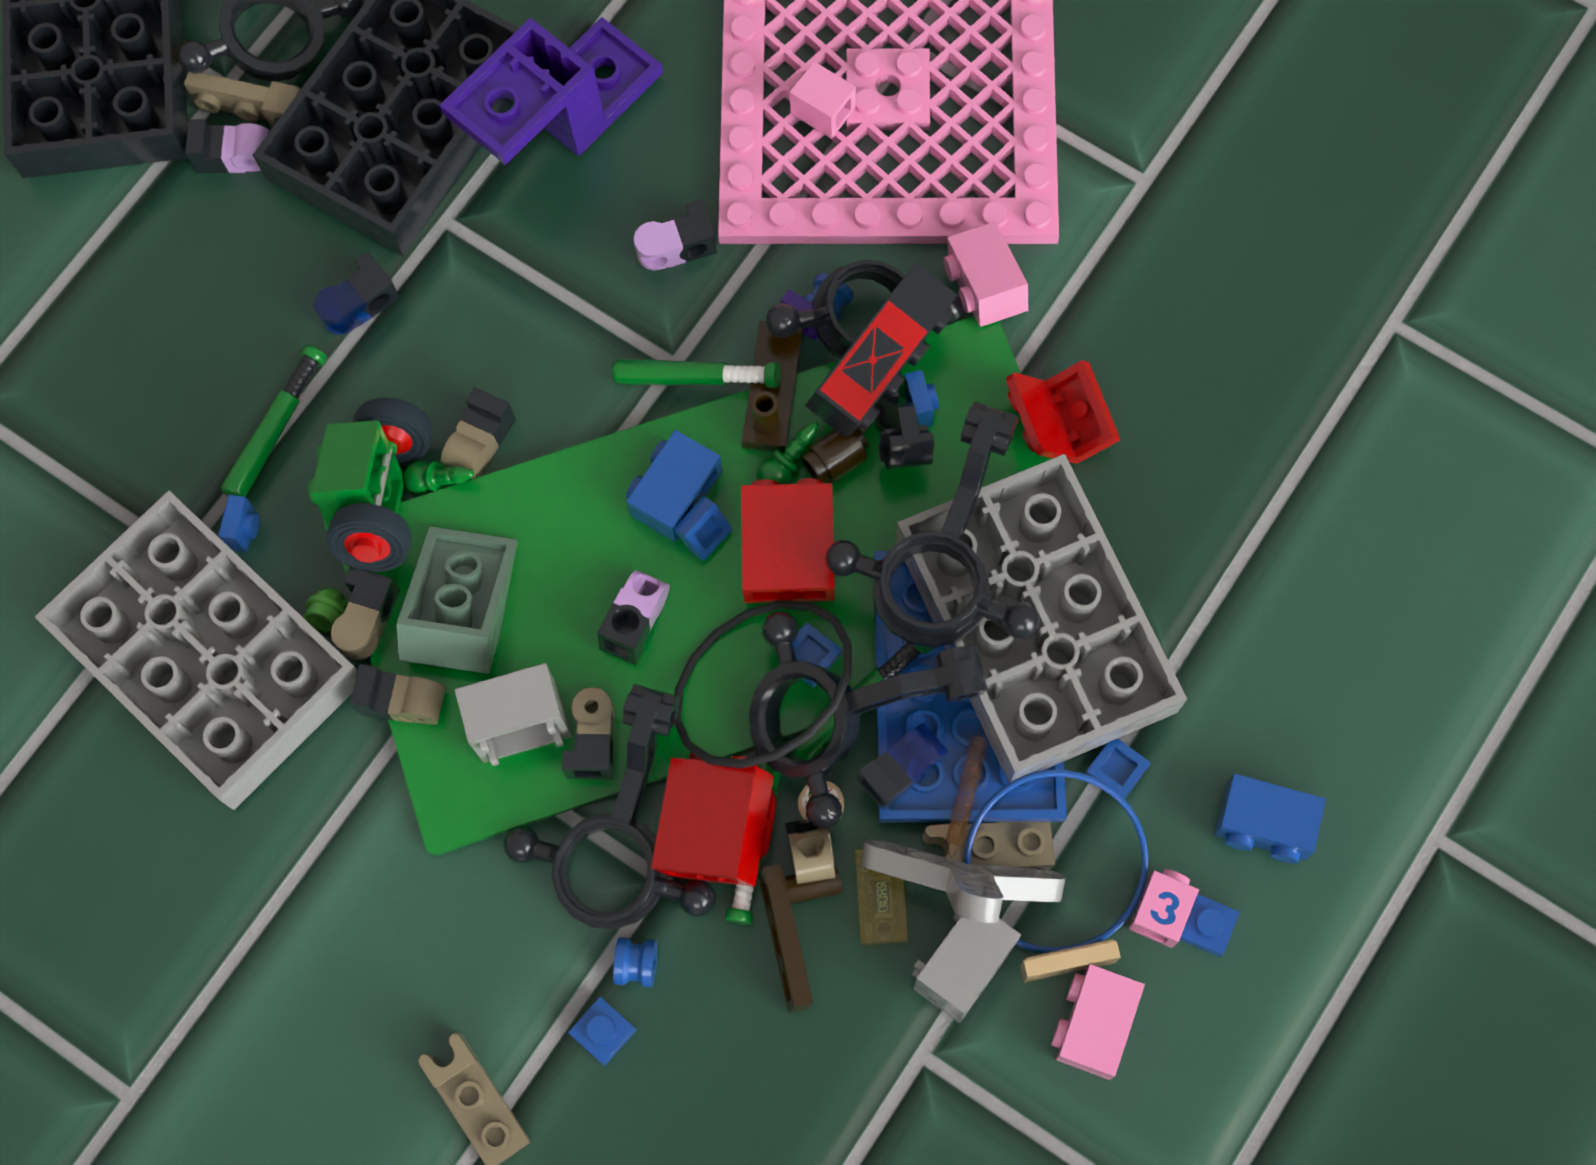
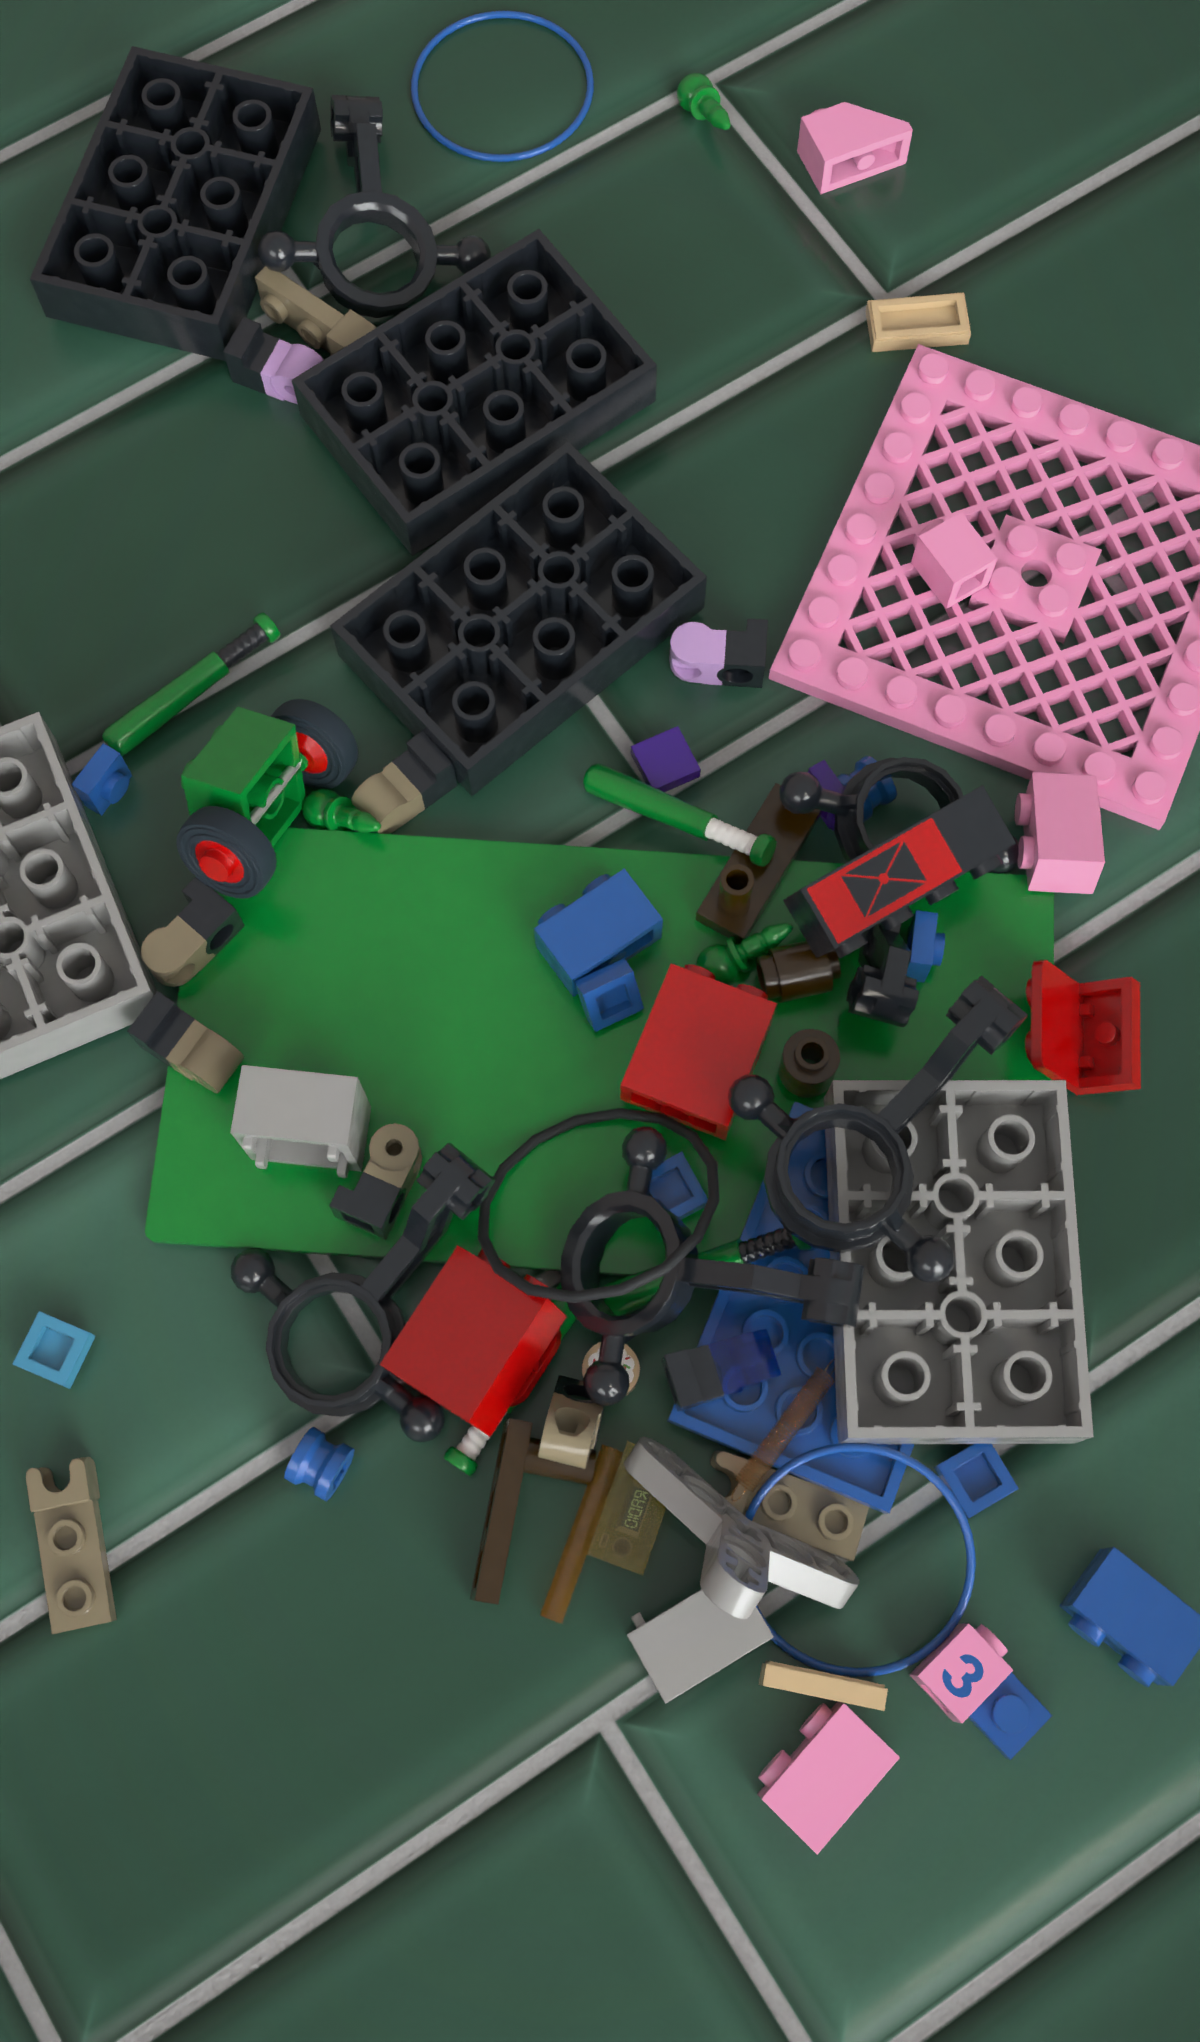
camera: 20 degrees right, 0 degrees up
(324, 609) = (153, 911): bright green plate -> none
(357, 298) = (337, 582): leg -> none
(396, 965) = (54, 1350): none -> dark azure plate
(456, 600) = (298, 963): sand green slope -> none
(510, 273) = (520, 616): none -> black brick
(551, 89) = (649, 430): dark purple bracket -> none
(602, 1031) = (249, 1527): blue plate -> none
(632, 617) = (487, 1062): leg -> none
(668, 336) = (665, 760): none -> dark purple tile
(850, 931) = (581, 1535): none -> clear orange bar
(868, 530) = (804, 1078): none -> dark brown brick

